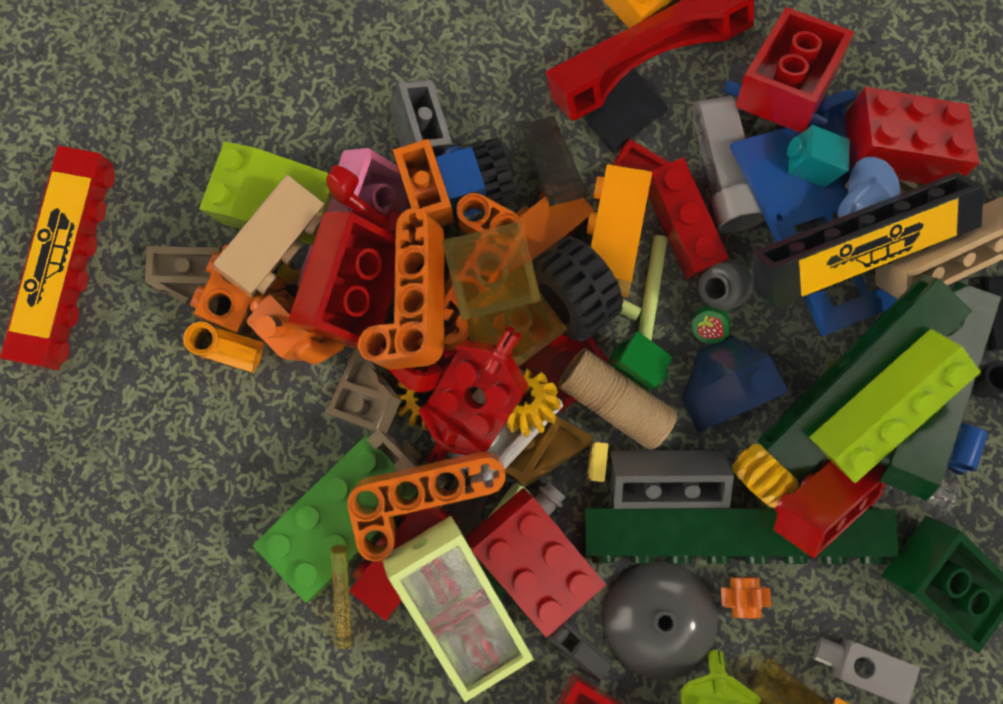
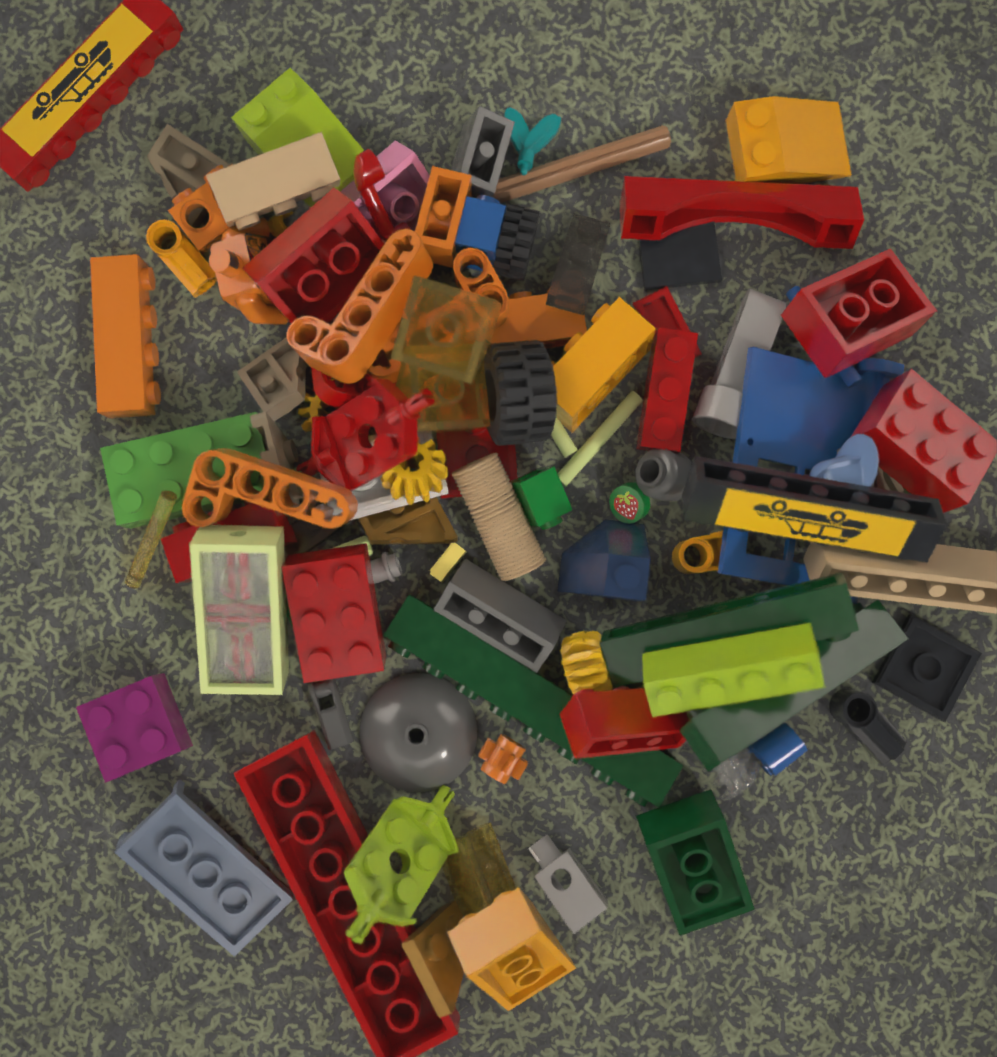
camera: 35 degrees right, 5 degrees up
(213, 441) = (124, 336): none -> orange brick
(452, 90) = (531, 142): none -> teal piece
(504, 81) = (582, 163): none -> medium nougat axle
(799, 323) = (709, 549): none -> light orange piece
(818, 156) = (825, 407): teal brick -> none

